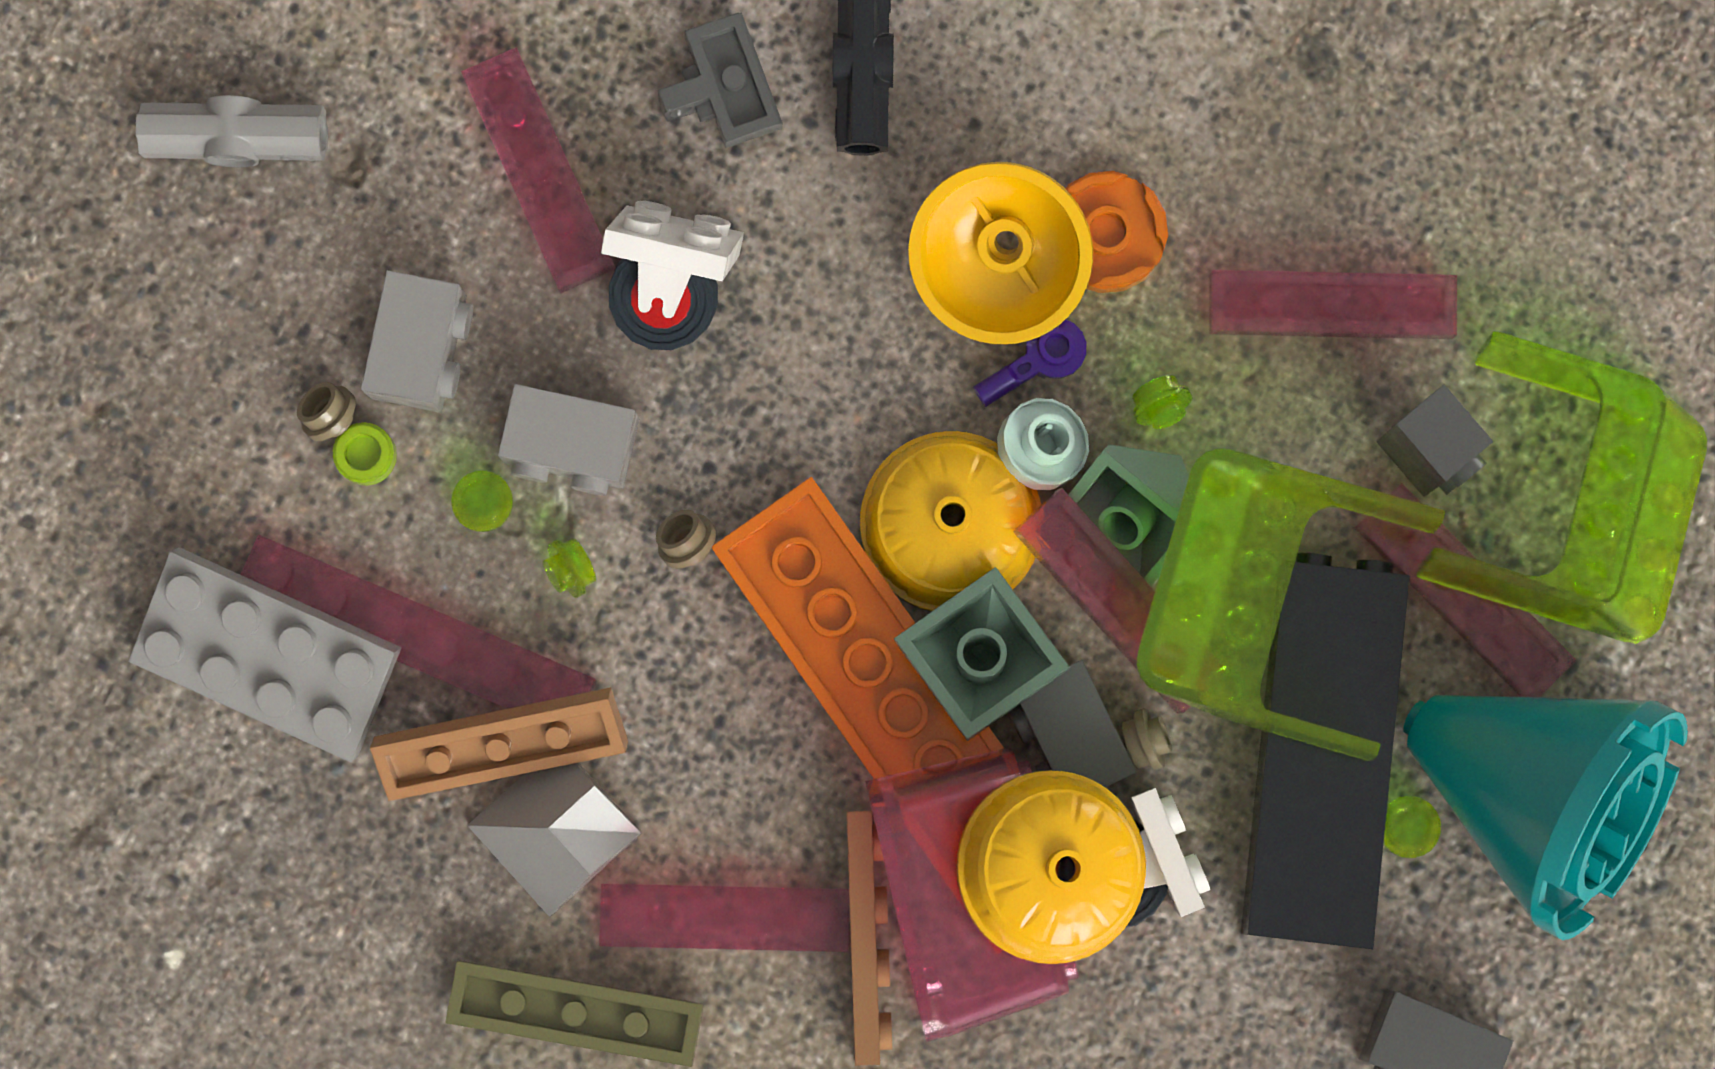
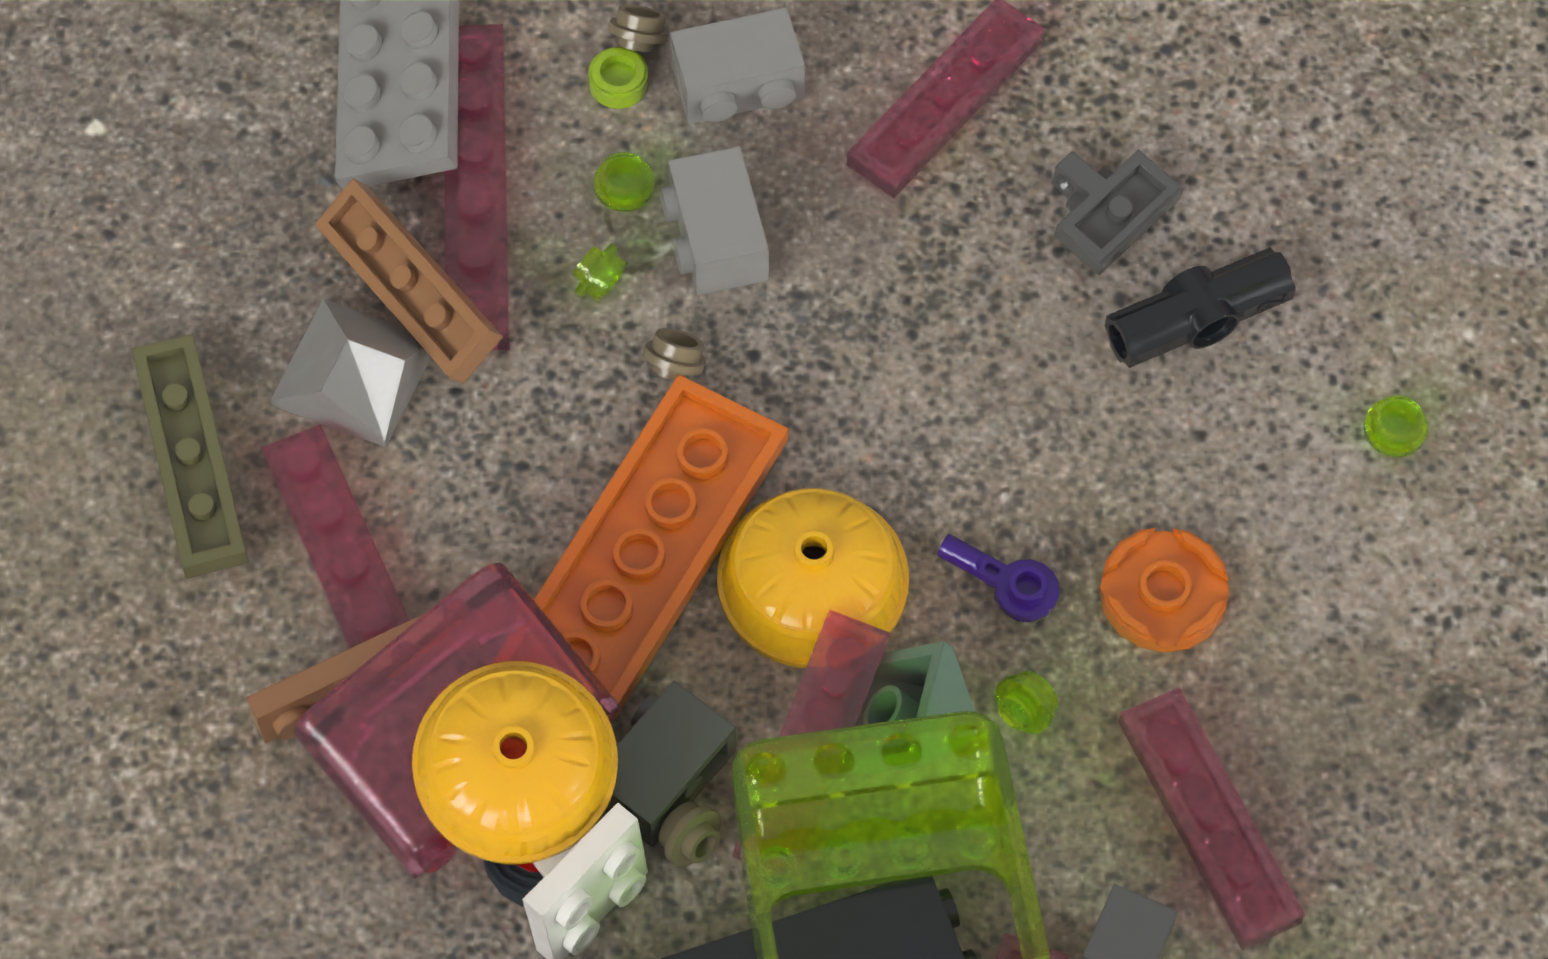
camera: 60 degrees right, 20 degrees down
(668, 273) = (901, 229): white plate -> none
(981, 654) = (695, 629): sand green slope -> none
(994, 290) = (1066, 465): yellow hat -> none
(1043, 444) = (927, 606): light aqua plate -> none

